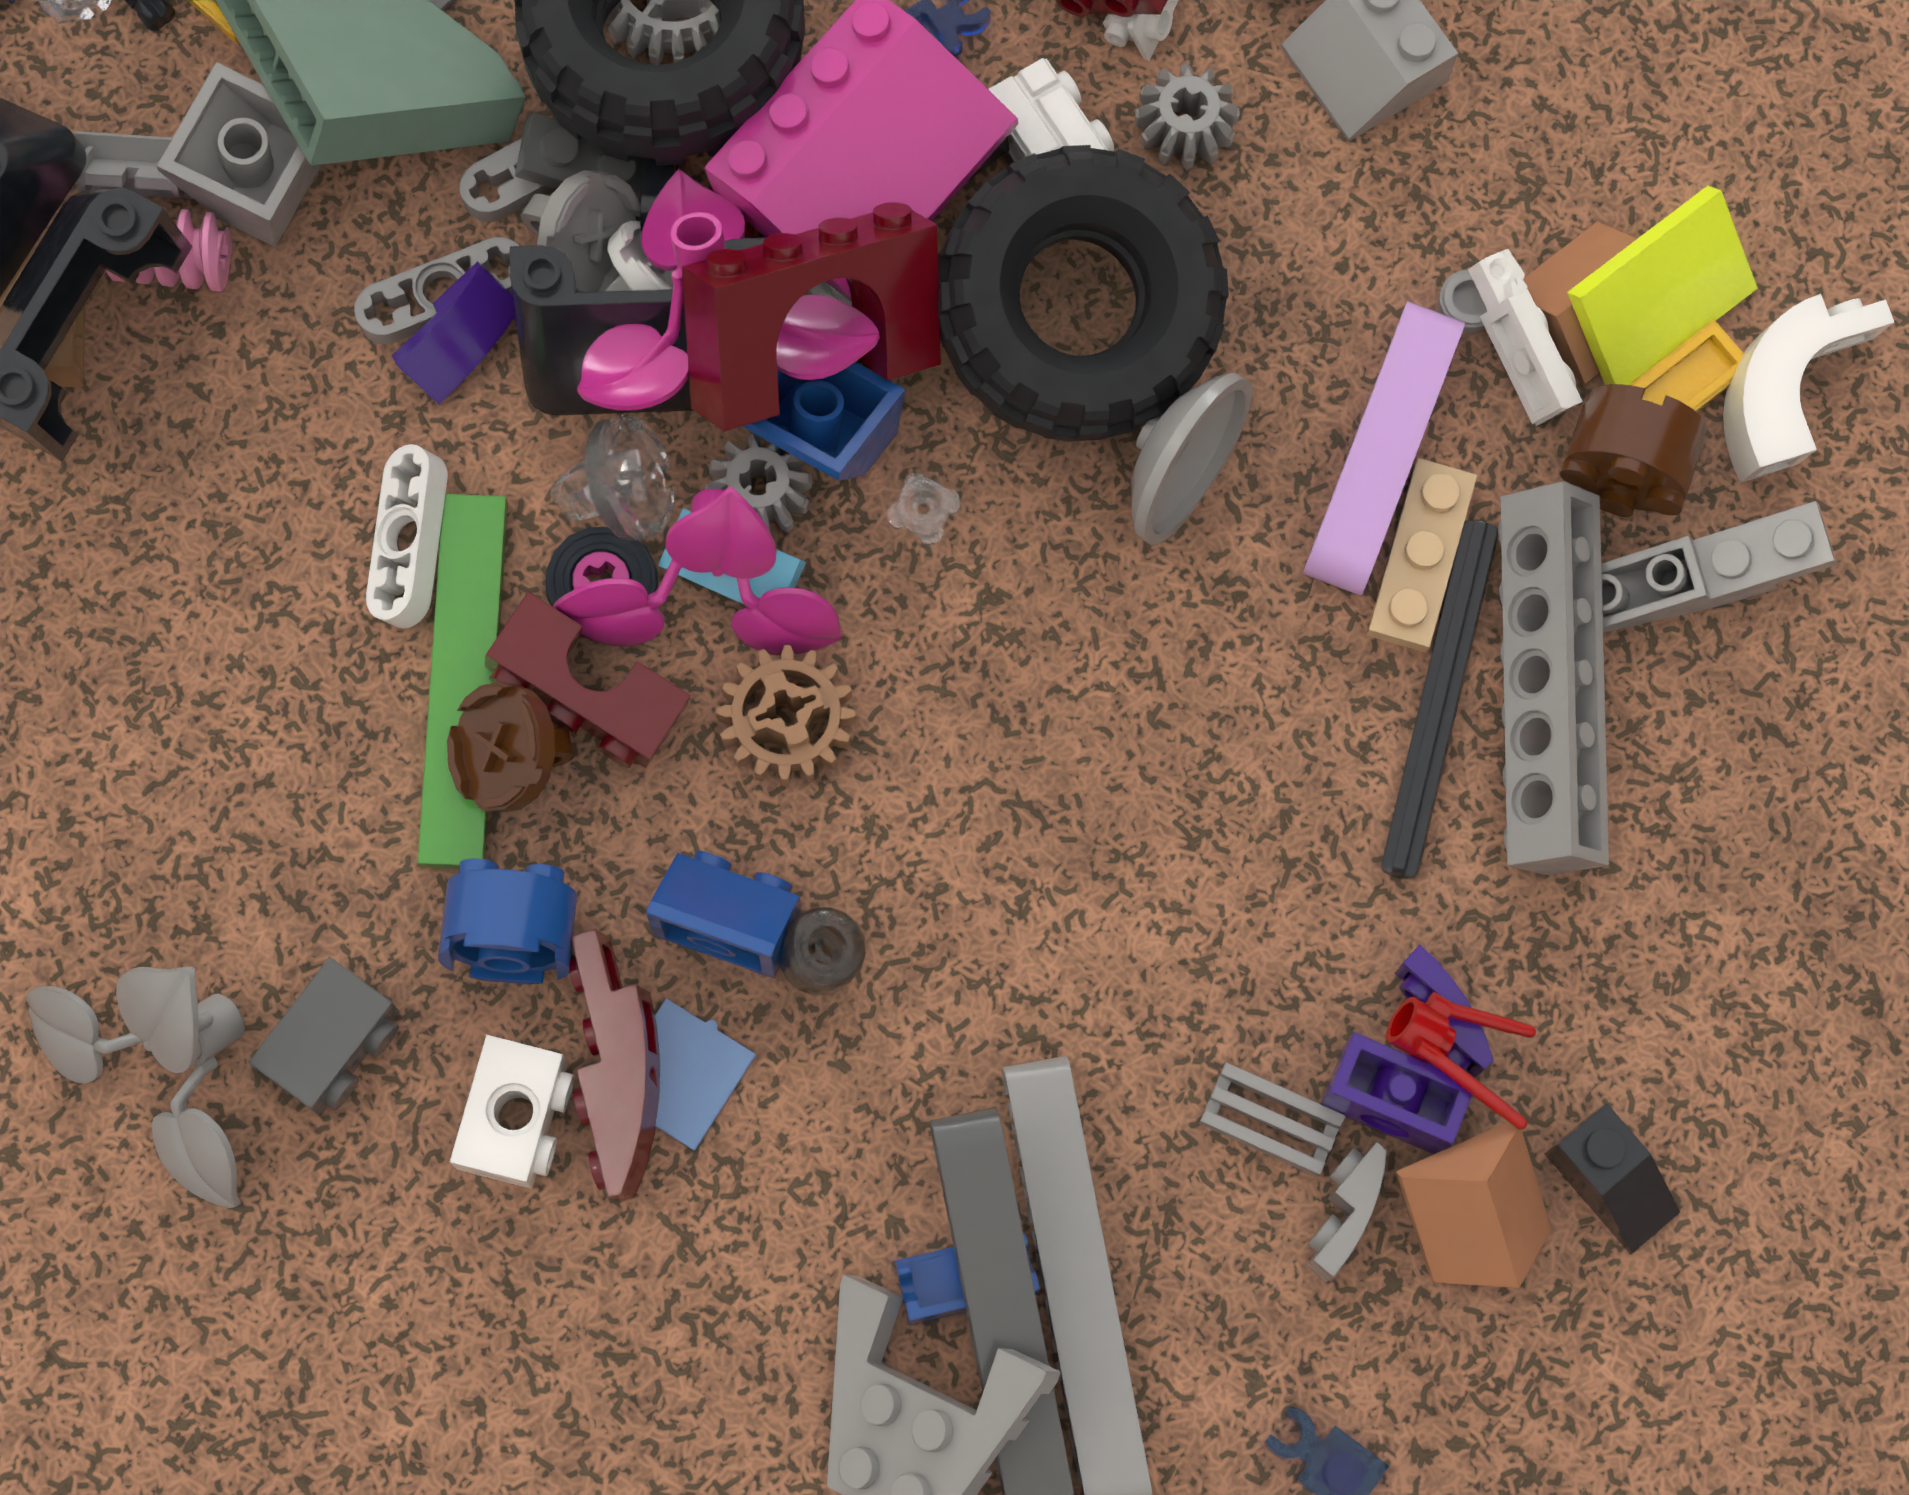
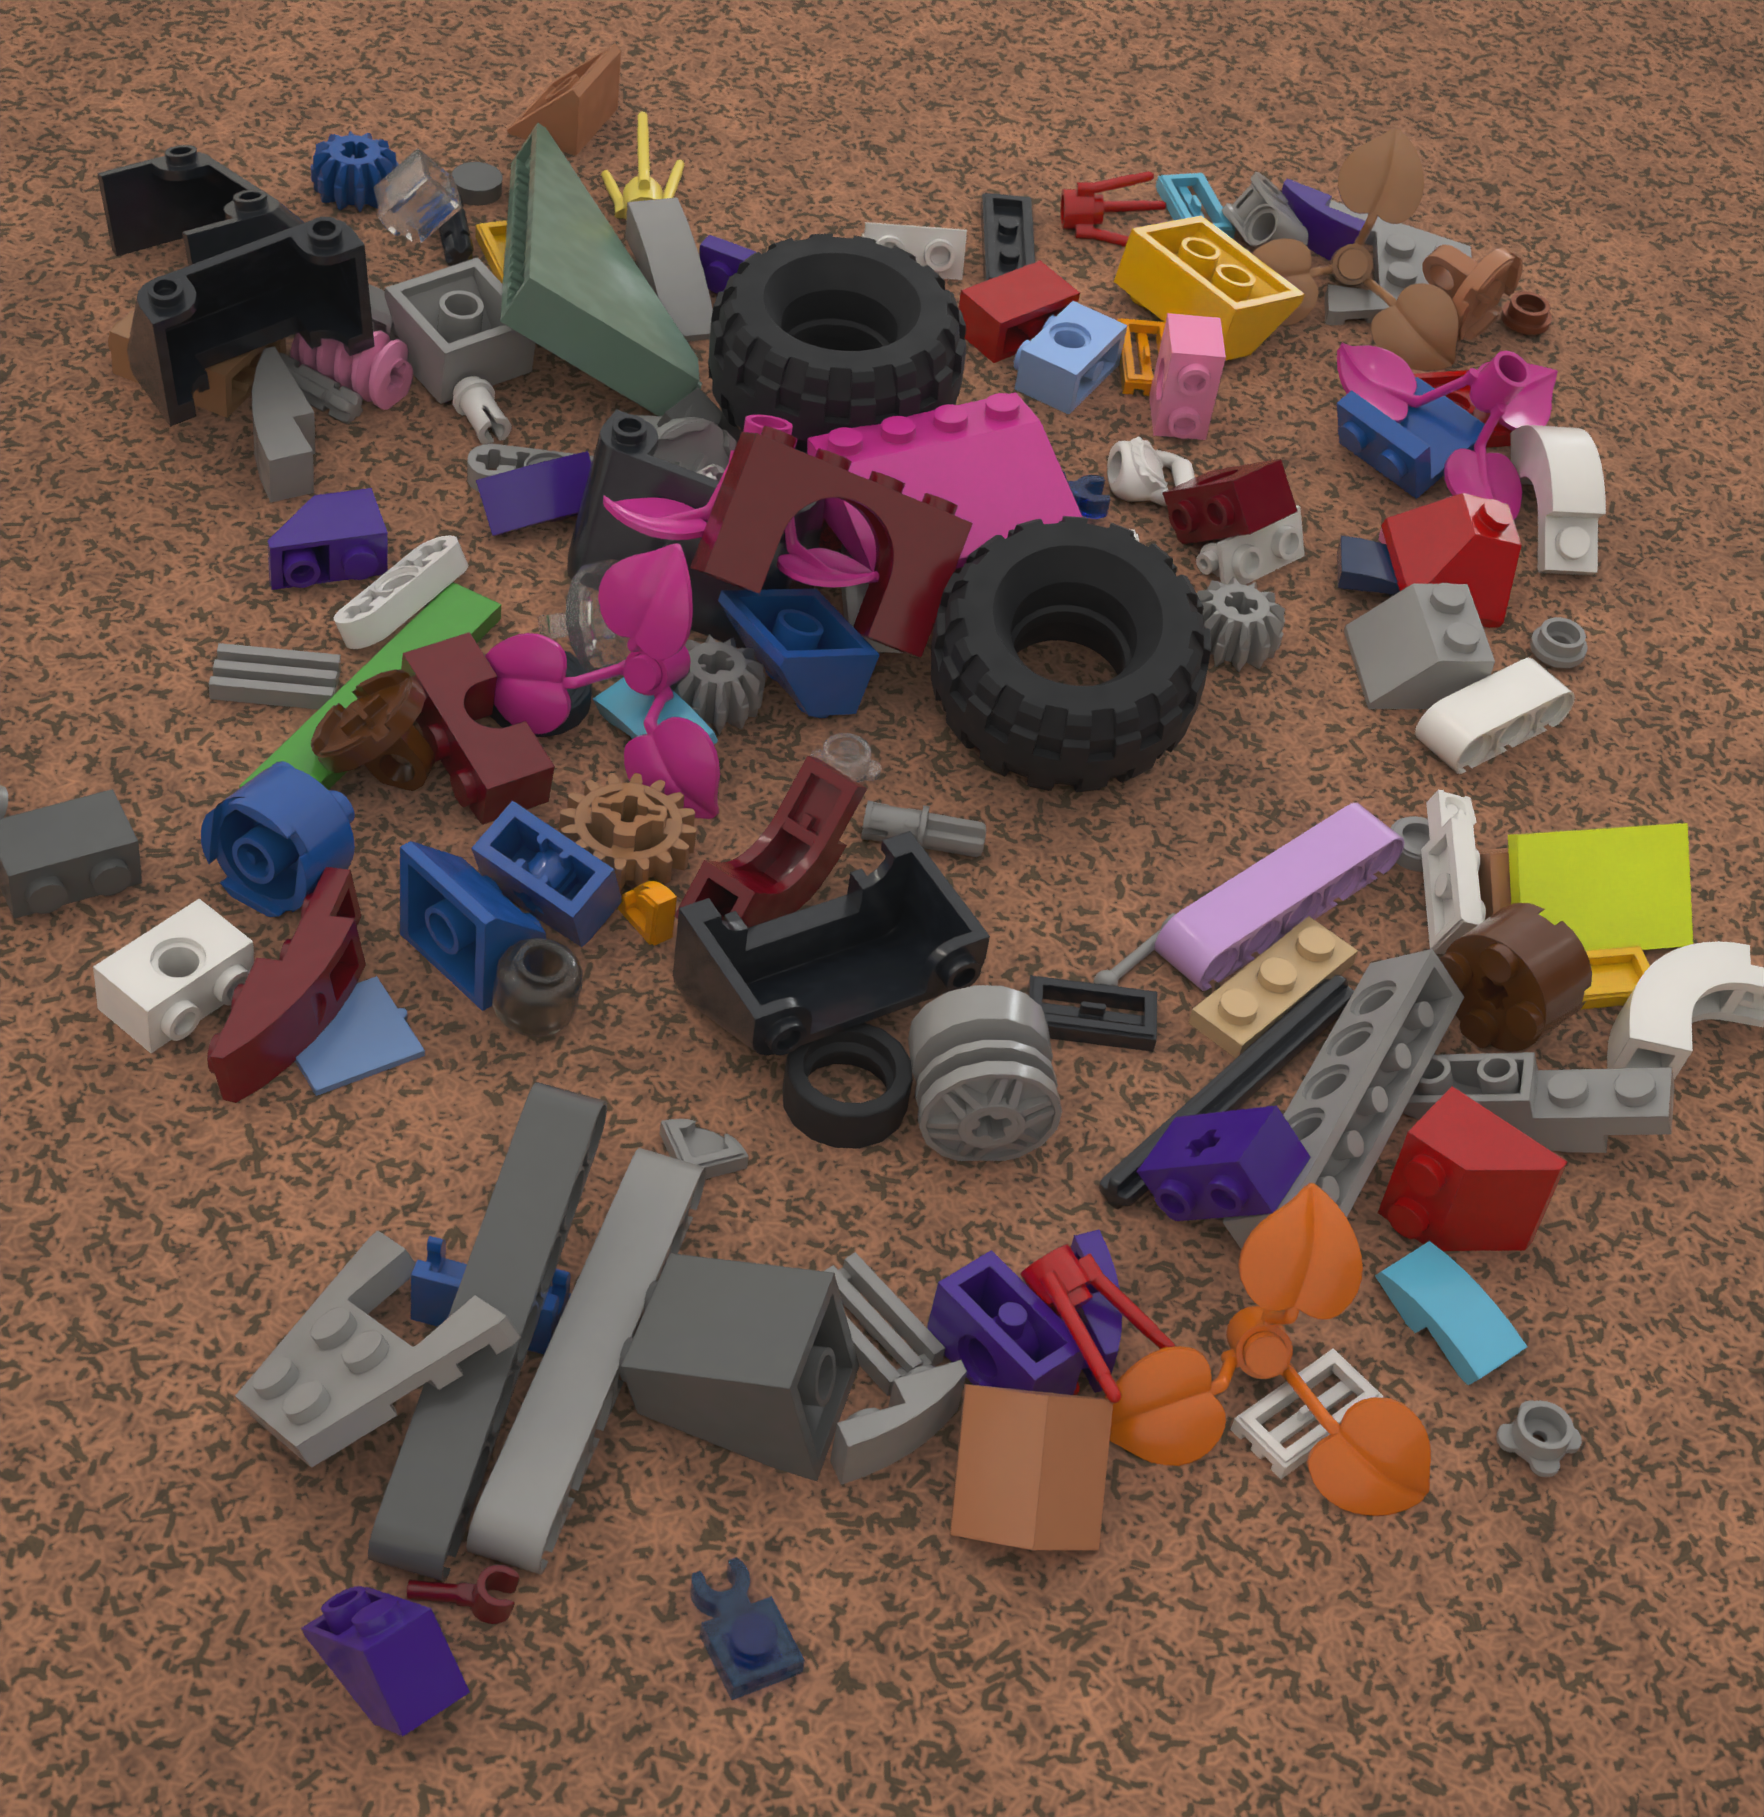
camera: 25 degrees right, 30 degrees down
(147, 302) = (325, 392): none -> light grey axle
(158, 389) = (282, 430): none -> light grey slope
(303, 511) = (329, 541): none -> dark purple slope
(322, 237) = (476, 400): none -> white pin
(349, 683) = (274, 676): none -> light grey tile
(756, 821) = (548, 874): none -> blue brick
(863, 800) = (650, 911): none -> light orange tile
(941, 692) = (791, 853): none -> dark red arch
(1035, 551) = (929, 829): none -> light grey axle
(1041, 1024) = (703, 1147): none -> light grey tile
(1059, 784) = (836, 963): none -> black windscreen
(1142, 843) = (847, 1123): none -> black tyre
(1186, 454) = (1100, 794): light grey dish -> none
(1201, 1236) = (744, 1358): none -> dark grey slope
(1234, 699) = (1091, 1021): none -> black tile
(1248, 836) = (984, 1074): none -> light grey wheel
(1277, 631) = (1111, 977): none -> light grey hinge
(1473, 97) = (1494, 713): none -> white beam
(1489, 819) = (1224, 1164): none -> dark purple brick
(1615, 1177) = (1189, 1521): black slope -> none
(1630, 1053) = (1268, 1444): none -> white tile
(1631, 944) = (1294, 1263): none -> orange plant
(1684, 710) = (1470, 1180): none -> red slope
(1721, 836) = (1459, 1314): none -> medium azure slope
(1857, 917) = (1544, 1420): none -> light grey plate

